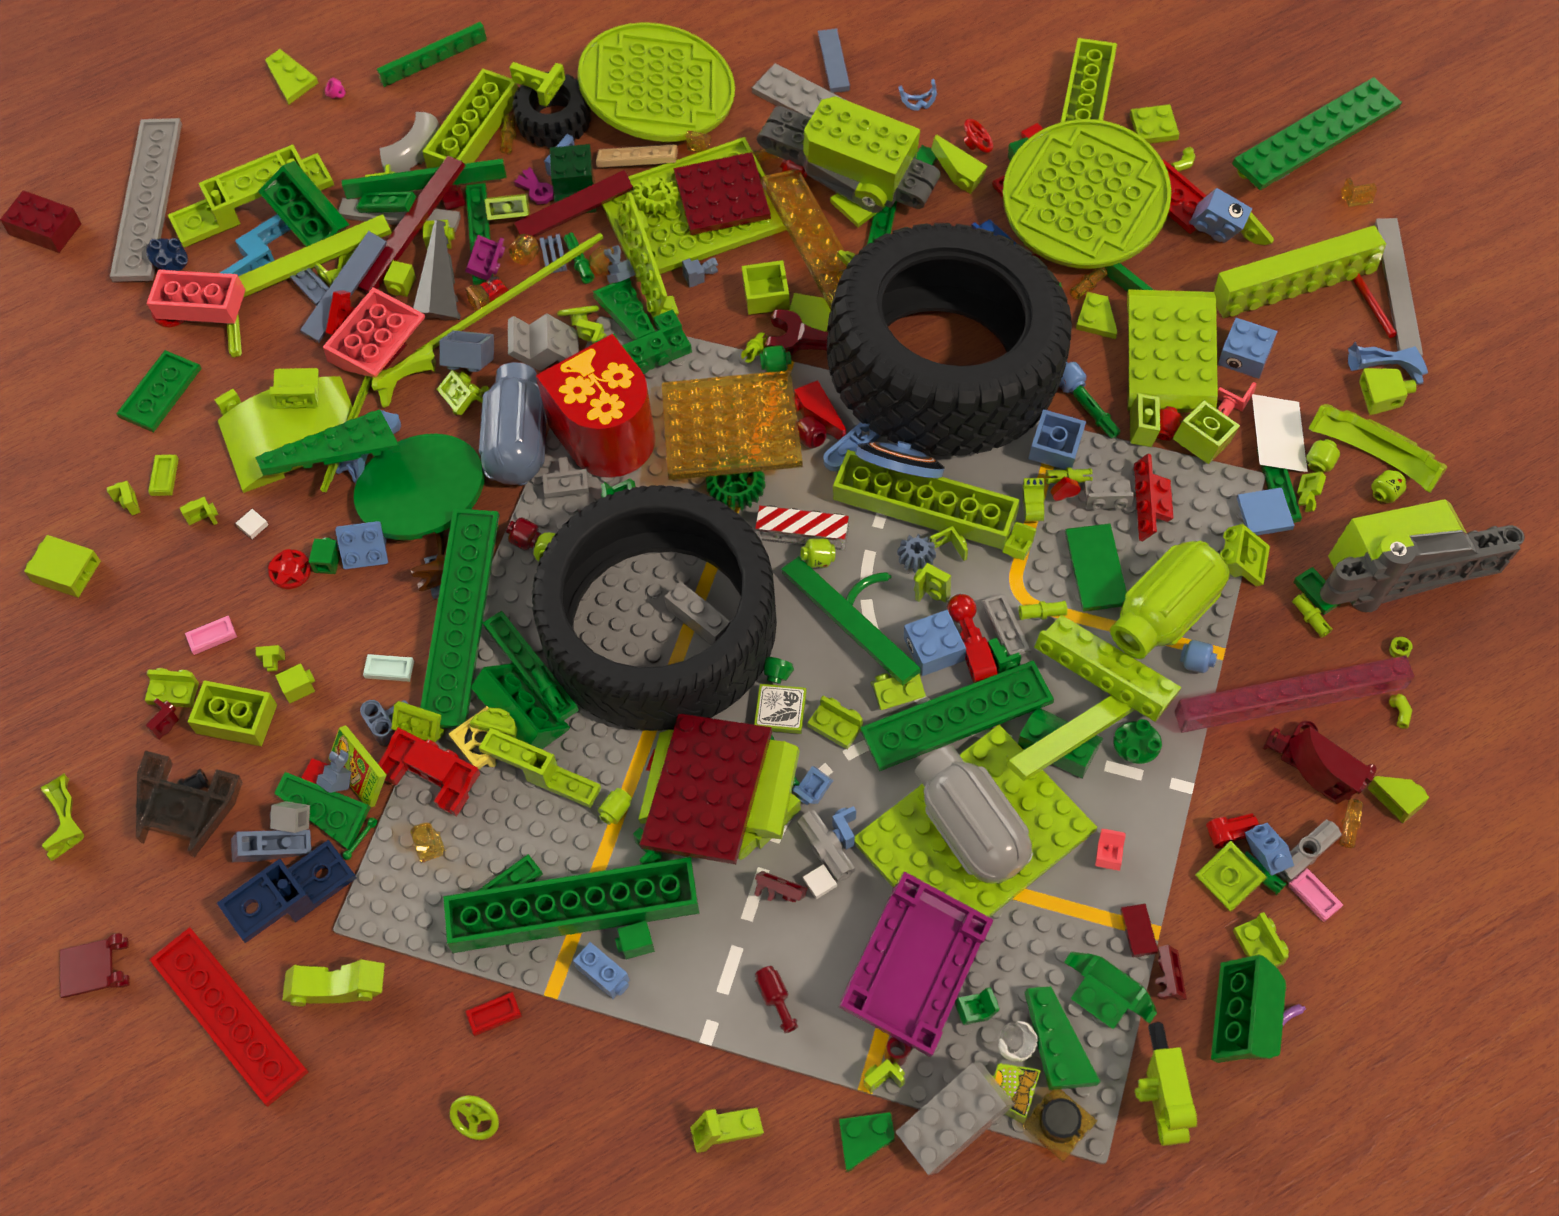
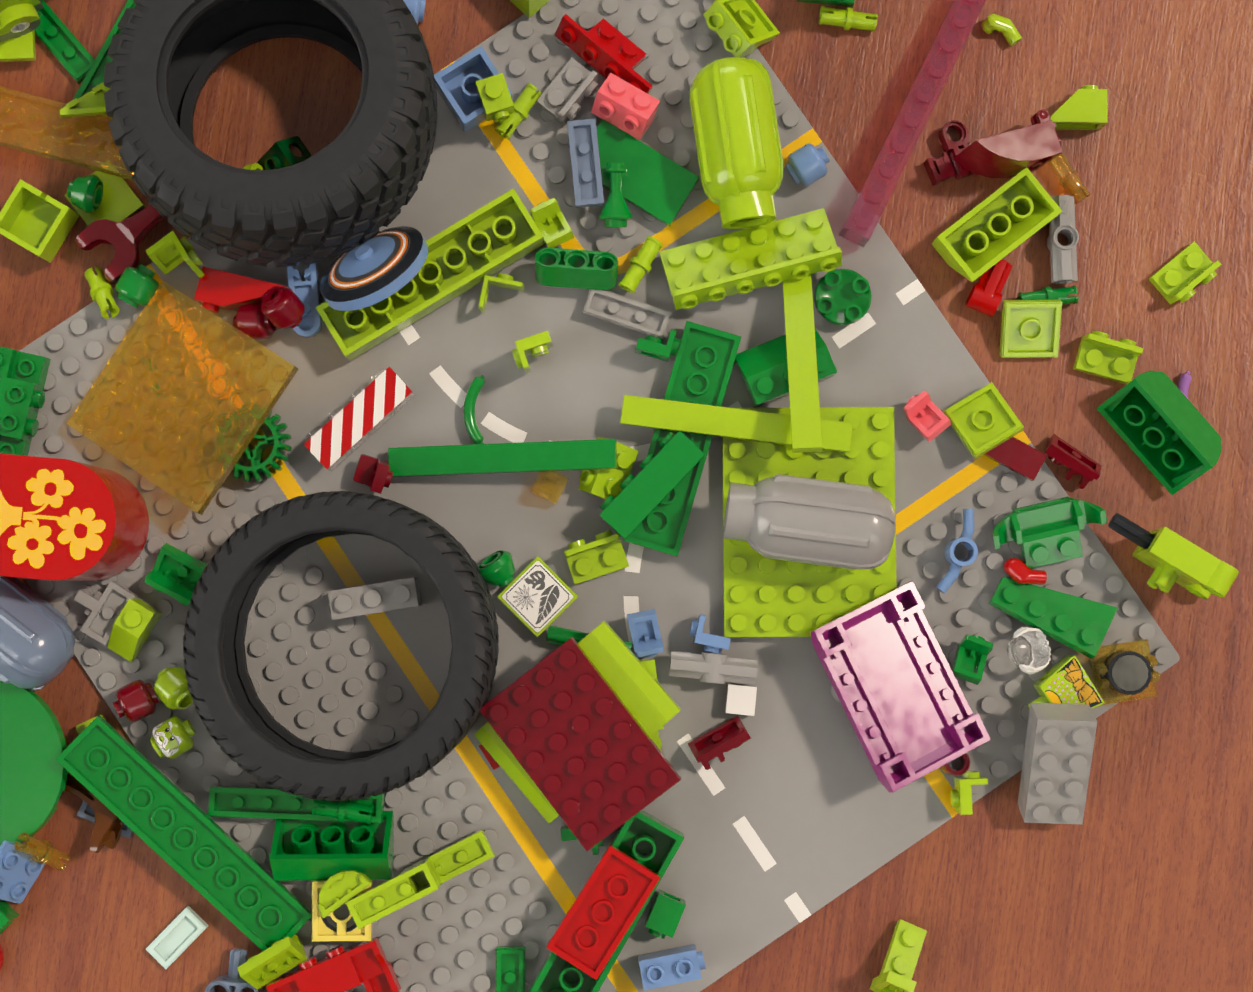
camera: 55 degrees left, 25 degrees up
(387, 550) = (41, 851): none -> clear yellow pin
(516, 568) = (172, 737): none -> lime head
(565, 500) = (133, 628): none -> lime slope
(606, 885) = (603, 912): none -> red plate
(614, 806) = (514, 833): lime brick -> none
(774, 993) = (815, 827): dark red piece -> none
(777, 557) = (373, 473): none -> dark red bracket
(806, 299) = (86, 192): none -> green cone
(811, 362) = (172, 251): none -> lime bracket
(818, 553) = (402, 427): lime head -> none
(831, 434) = (282, 307): none -> dark red head
(857, 663) = (549, 486): none -> clear yellow tile
(865, 1136) = (998, 844): green wing -> none
(910, 713) = (652, 484): none -> green brick
(911, 546) = (482, 322): sand blue gear -> none
(934, 642) = (592, 397): medium blue brick -> none
(978, 653) = (579, 342): red beam -> none
(994, 734) = (726, 422): none -> lime tile
(1005, 574) = (576, 268): none -> green beam
(1033, 499) = (517, 169): lime leg -> none
(1044, 934) = (956, 565): none -> medium blue piece
(1061, 570) = (615, 210): none -> green piece
(1062, 451) = (495, 98): none -> lime bracket
(1064, 995) = (1023, 574): none -> red arm
(1065, 488) = (529, 127): red tile -> none
(1073, 531) = (585, 163): none -> sand blue plate
(1096, 412) = (466, 18): green axle -> none
(1129, 527) = (625, 106): none -> coral brick
(1141, 890) = (983, 420): none -> lime tile
(1269, 848) = (1040, 275): medium blue brick -> none
(1274, 795) = (996, 226): none -> lime slope
(1315, 895) = (1104, 269): bright pink tile -> none
(1365, 950) = (1183, 273): none -> lime bracket

